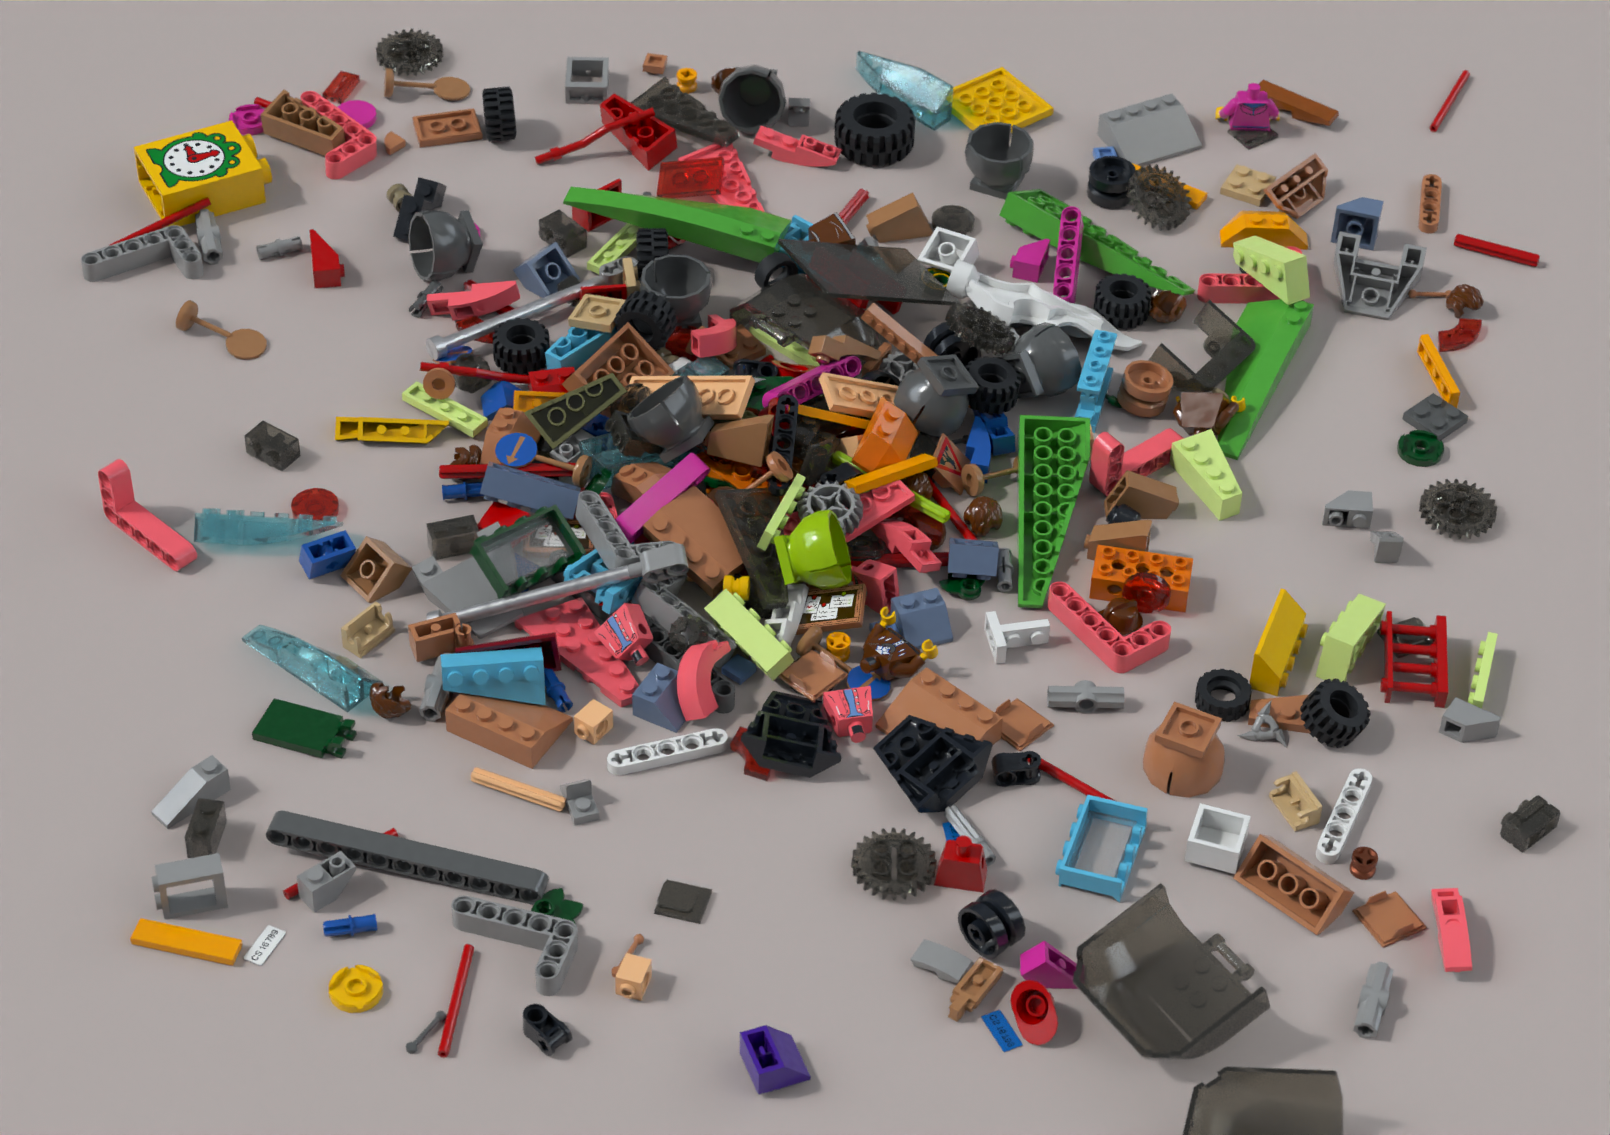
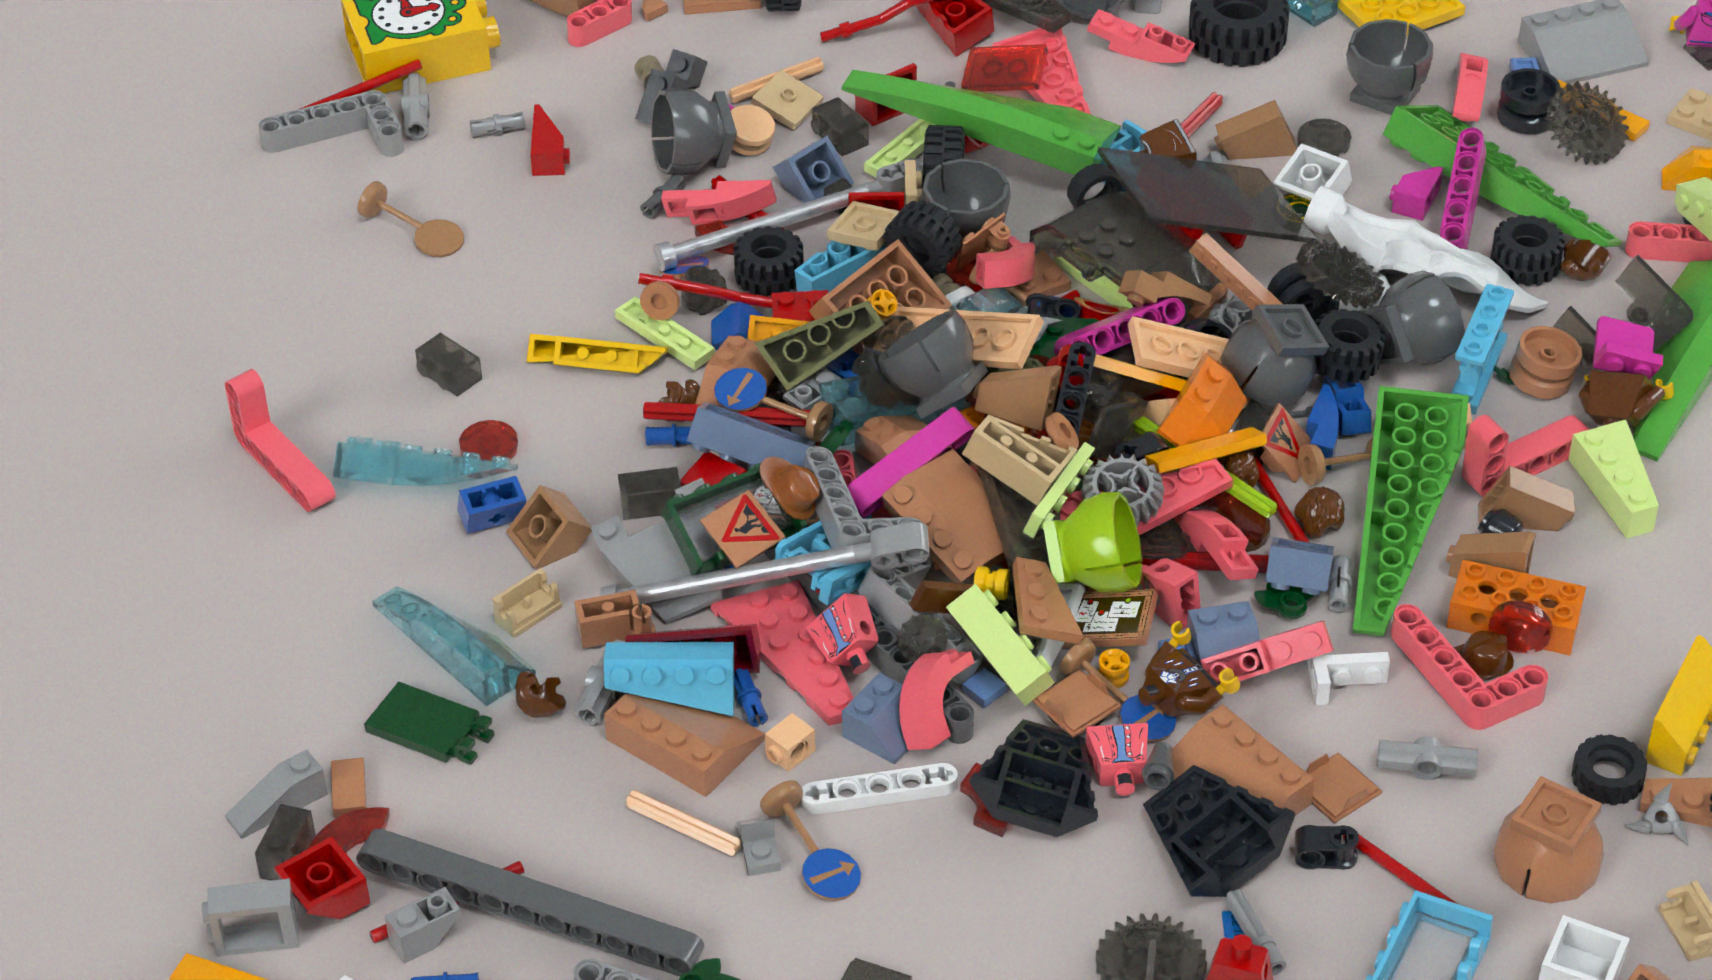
camera: 10 degrees right, 0 degrees up
(245, 853) = (325, 880): none -> red slope
(247, 782) = (348, 785): none -> nougat tile
(252, 816) = (353, 827): none -> clear red tile
(494, 239) = (754, 129): none -> light nougat head
(505, 197) = (797, 71): none -> light nougat axle
(516, 214) = (787, 99): none -> tan plate
(536, 559) = (742, 529): none -> nougat piece
(572, 522) = (791, 485): none -> dark orange piece
(623, 372) = (883, 300): none -> light orange wheel
(634, 817) = (826, 871): none -> piece
(695, 600) = (935, 596): none -> reddish brown tile
(701, 315) = (991, 236): none -> nougat hinge
(747, 489) = (1017, 458): none -> tan wedge
(778, 600) = (1041, 604): none -> nougat wing
(883, 718) = (1159, 767): none -> dark grey cone
(959, 625) = (1271, 652): none -> coral slope
(1064, 173) = (1469, 87): none -> coral slope
(1206, 373) = (1625, 348): none -> dark pink bracket

